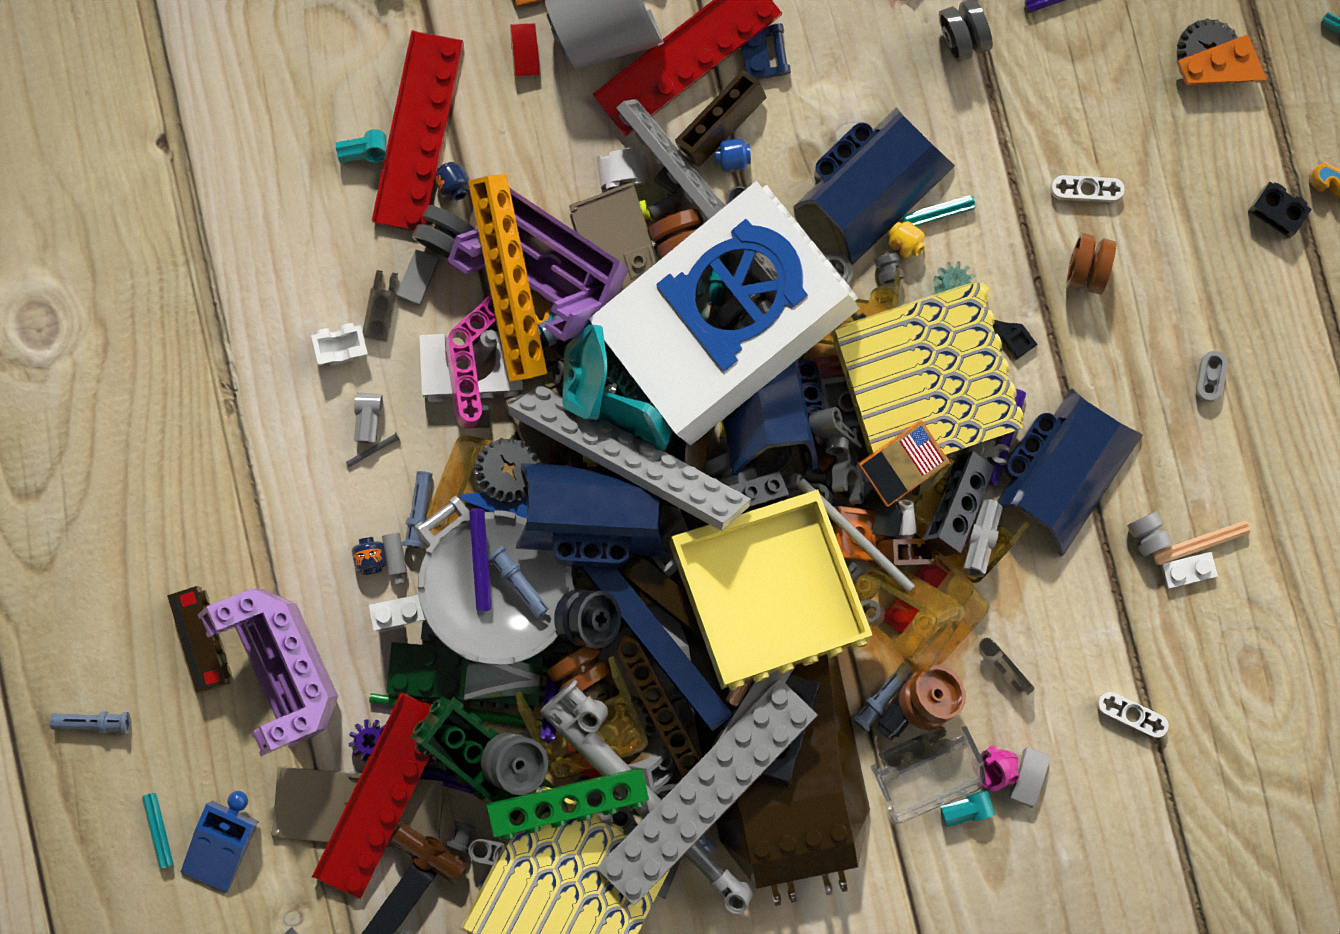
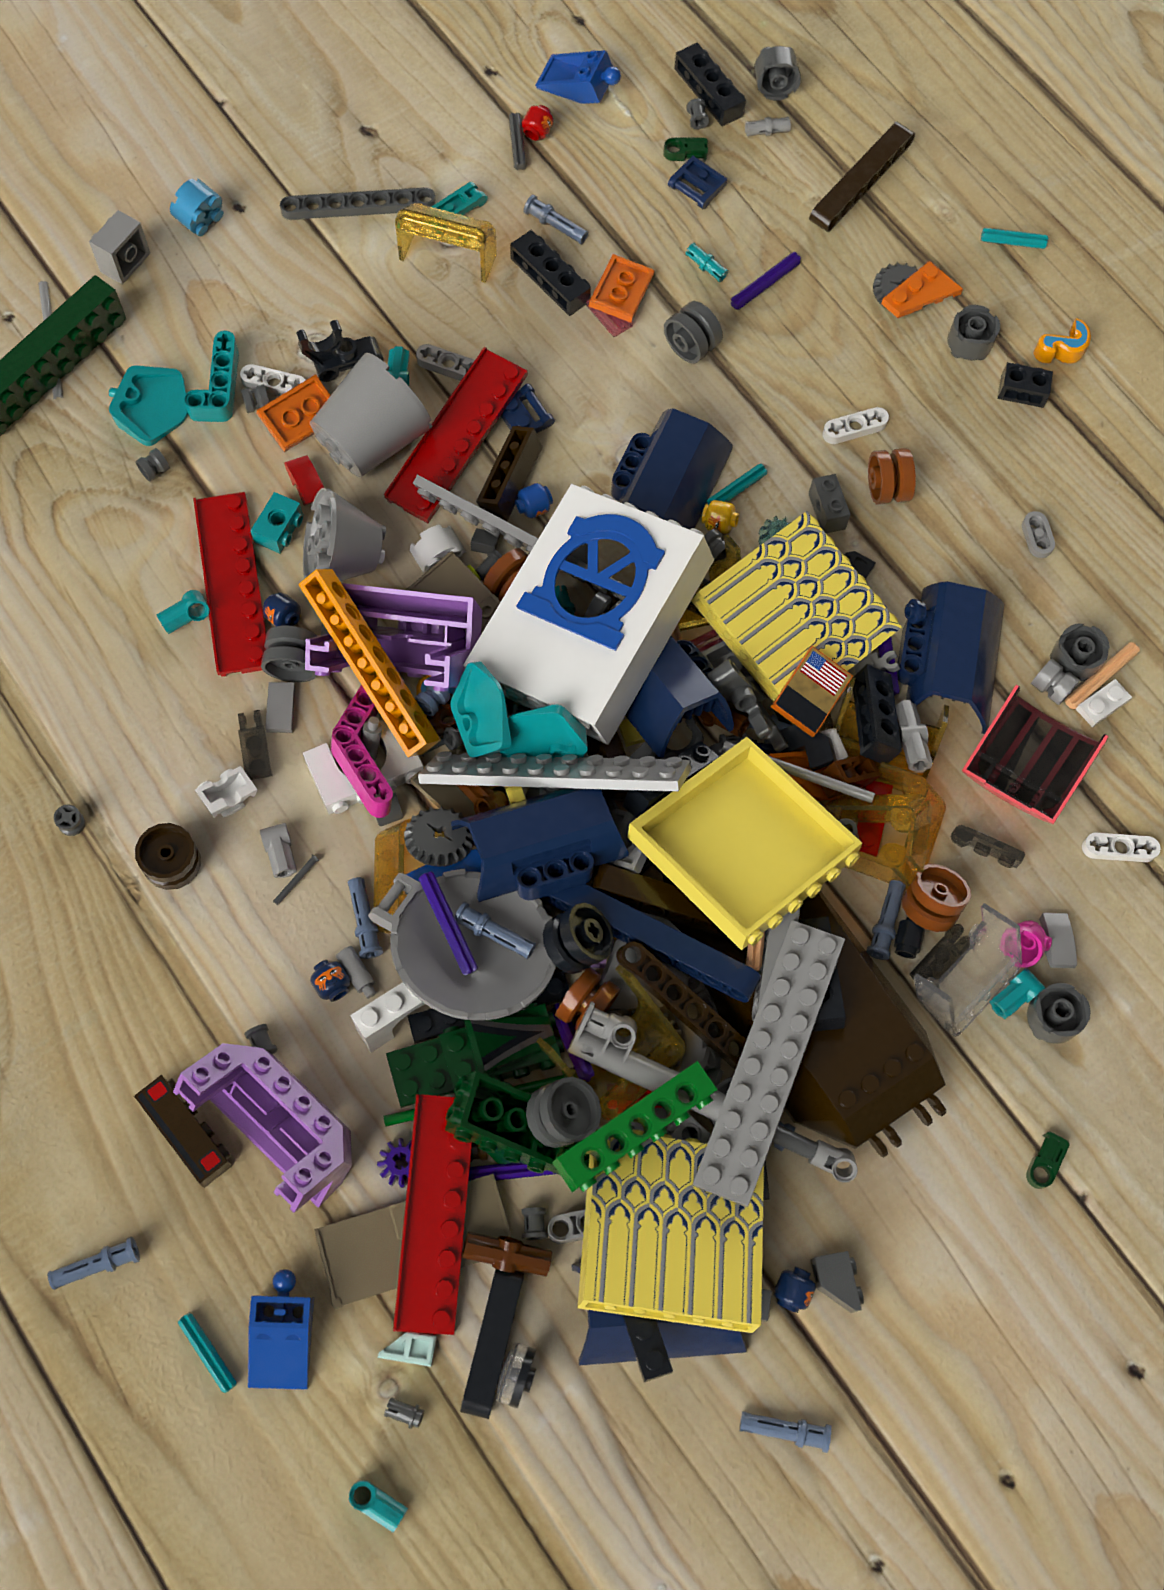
camera: 30 degrees left, 15 degrees down
(189, 314) = (65, 815): none -> dark grey wheel
(254, 380) = (168, 856): none -> dark brown wheel
(290, 587) = (259, 1038): none -> dark grey bush
(321, 895) = (411, 1348): none -> light aqua tile
(484, 72) = (277, 510): none -> teal brick
(529, 136) = (341, 538): none -> light grey cone
(1000, 856) = (1045, 1010): none -> dark grey brick
(1019, 266) = (829, 503): none -> dark grey brick
(1044, 416) = (915, 611): none -> dark blue plate
(1090, 600) = (1032, 759): none -> clear smoke windscreen
(1193, 502) = (1081, 650): none -> dark grey brick
(1267, 133) = (973, 333): none -> dark grey brick

